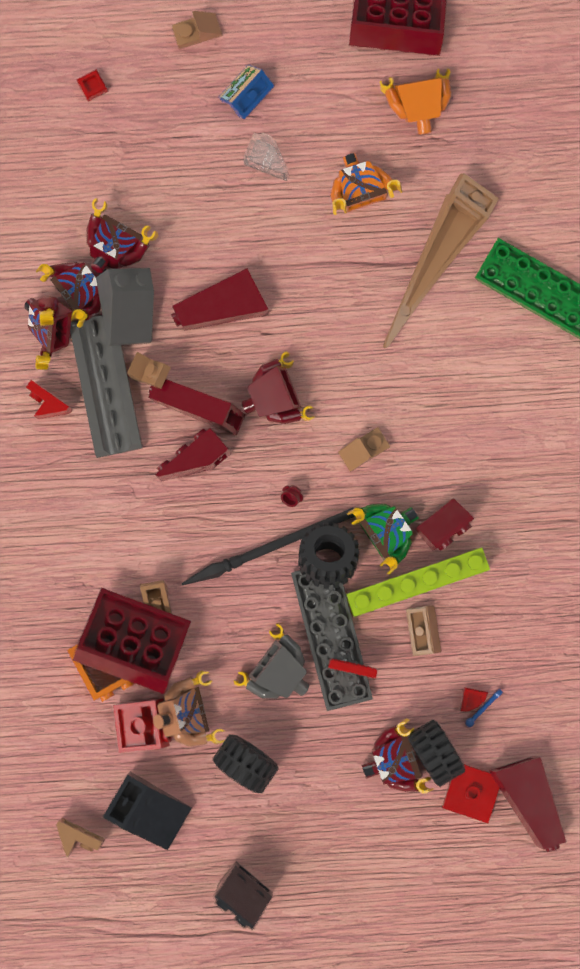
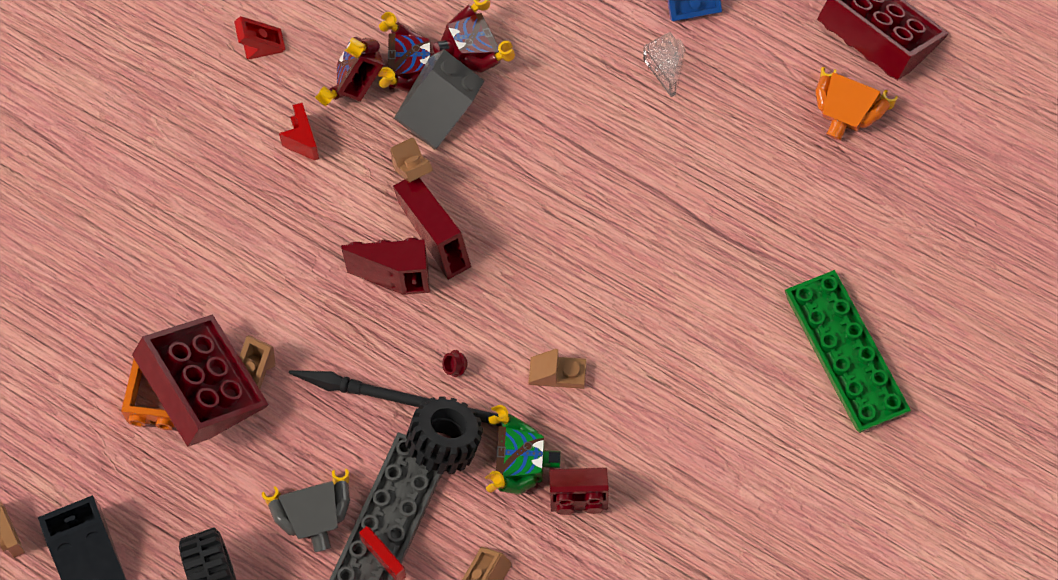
camera: 35 degrees right, 20 degrees down
(105, 389) = (359, 160): dark grey plate -> none
(136, 727) = (146, 469): plate -> none
(184, 714) = (191, 483): nougat torso -> none
(221, 303) = (526, 155): dark red slope -> none
(274, 394) = (511, 261): dark red torso -> none
(360, 185) = (734, 140): torso -> none
(417, 582) = (469, 510): lime arch -> none
(457, 222) = (804, 229): medium nougat plate -> none

